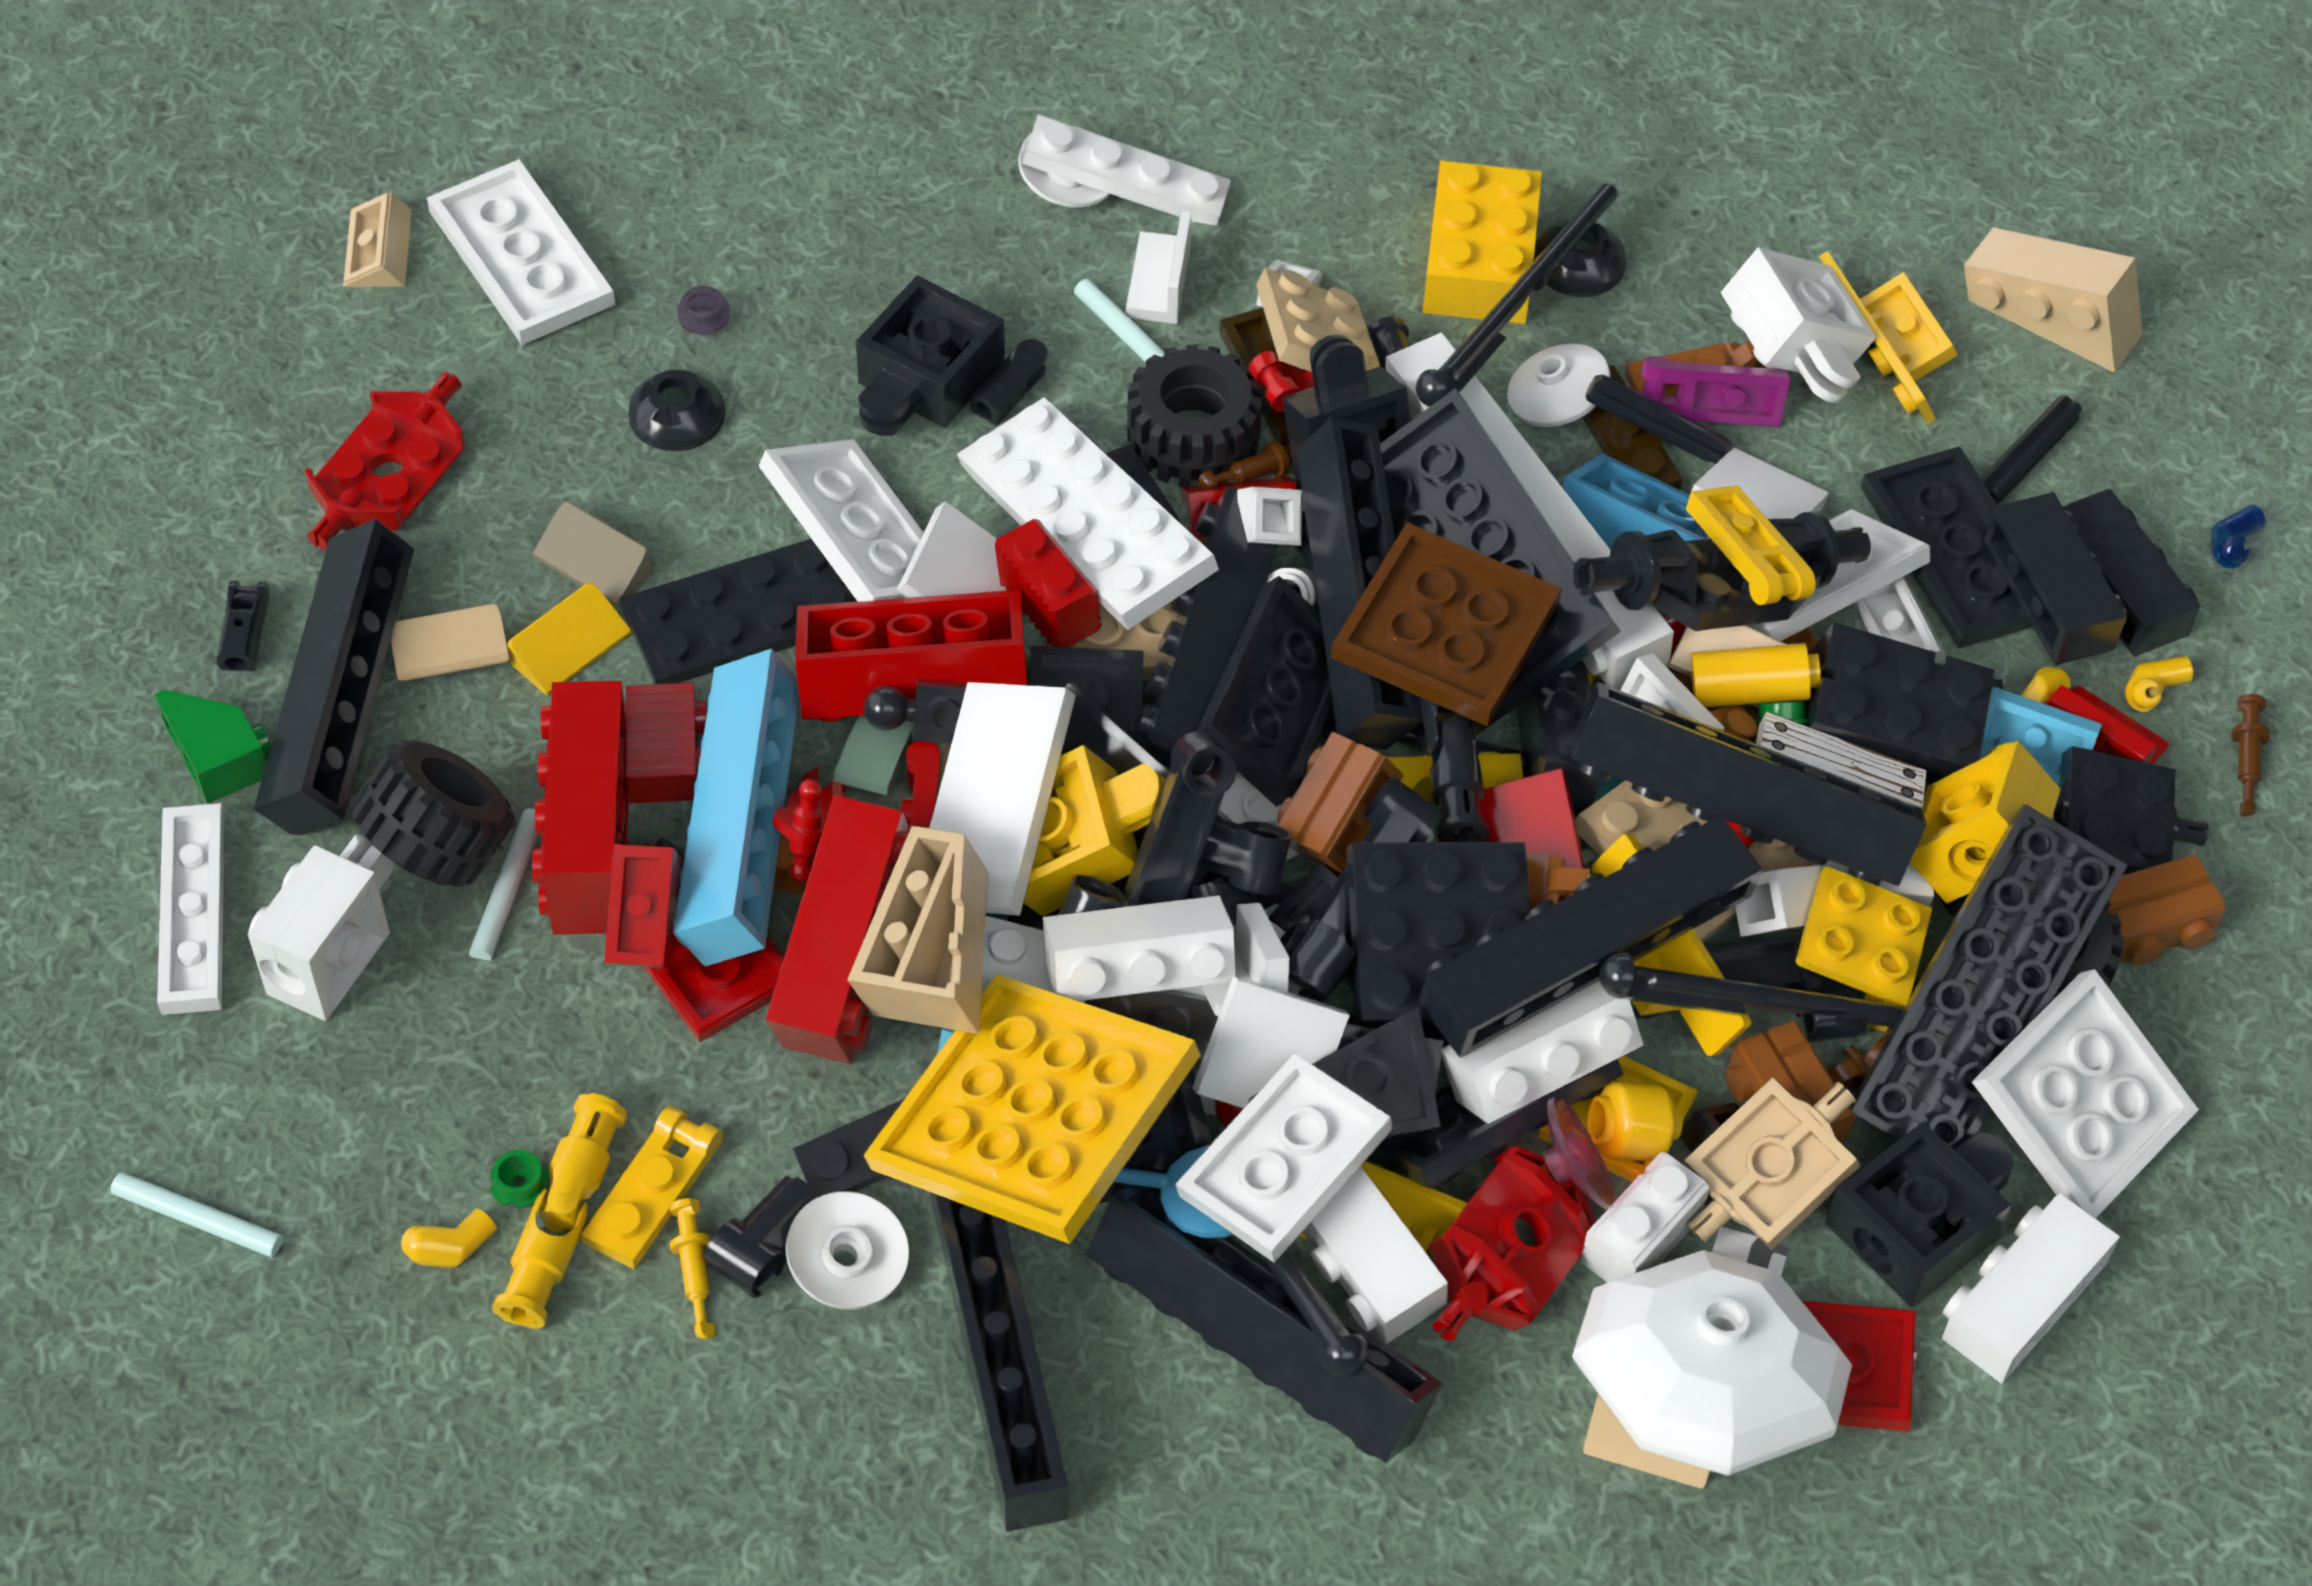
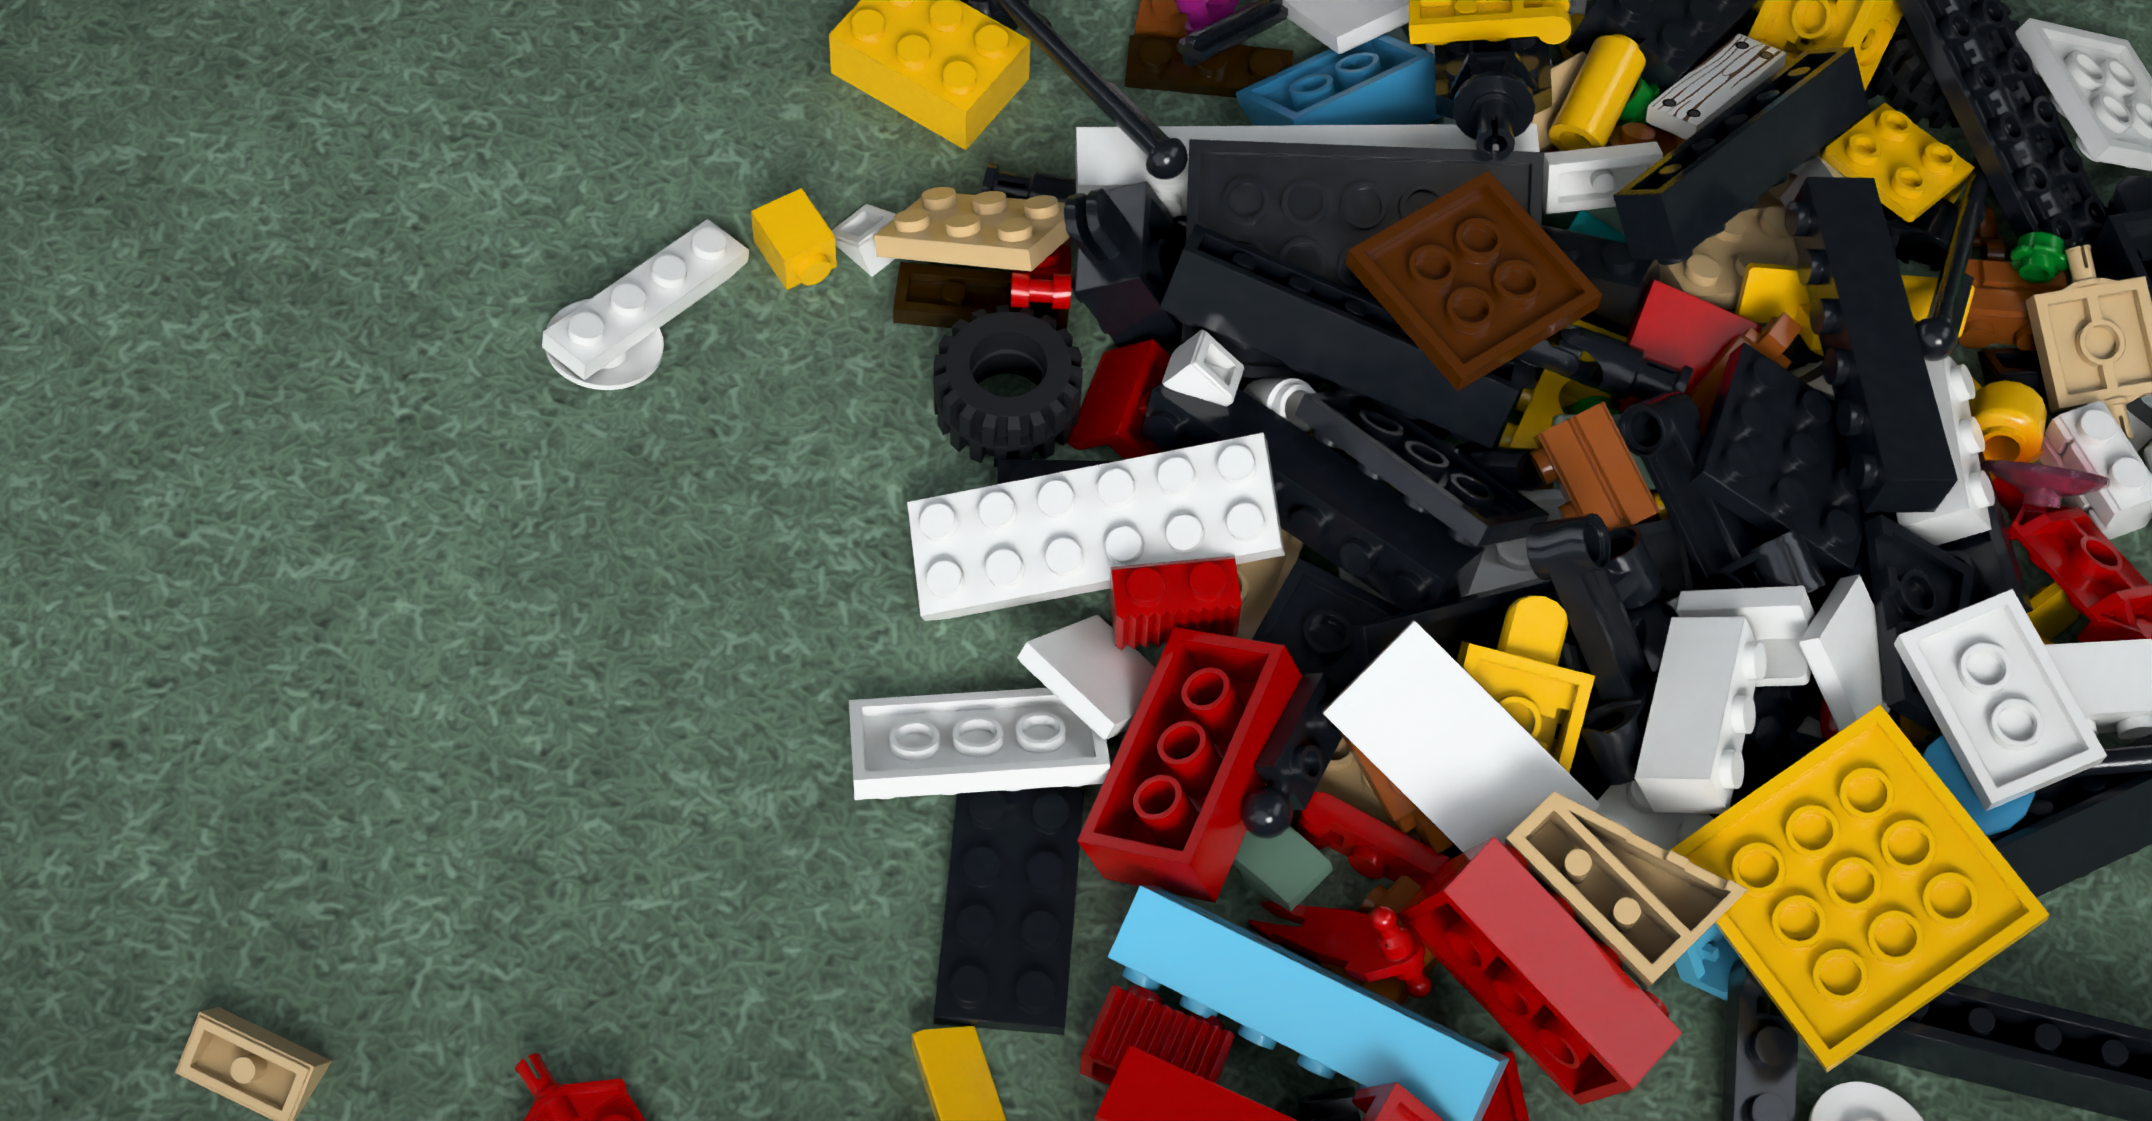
camera: 65 degrees left, 5 degrees up
(521, 251) = (370, 914): white plate -> none
(593, 552) = (855, 1020): slope -> none
(681, 423) = (699, 880): black piece -> none
(703, 299) = (575, 751): clear purple plate -> none
(925, 357) = (793, 584): black brick -> none
(1010, 381) = (853, 526): black bar -> none
(1117, 320) = (846, 396): light aqua bar -> none
(1160, 273) = (793, 328): white panel -> none
(1244, 235) = (794, 240): none -> yellow brick
(1273, 459) = (1092, 349): reddish brown piece -> none
(1553, 385) = (1159, 80): white dish -> none
(1827, 1073) = (2039, 257): none -> green plate

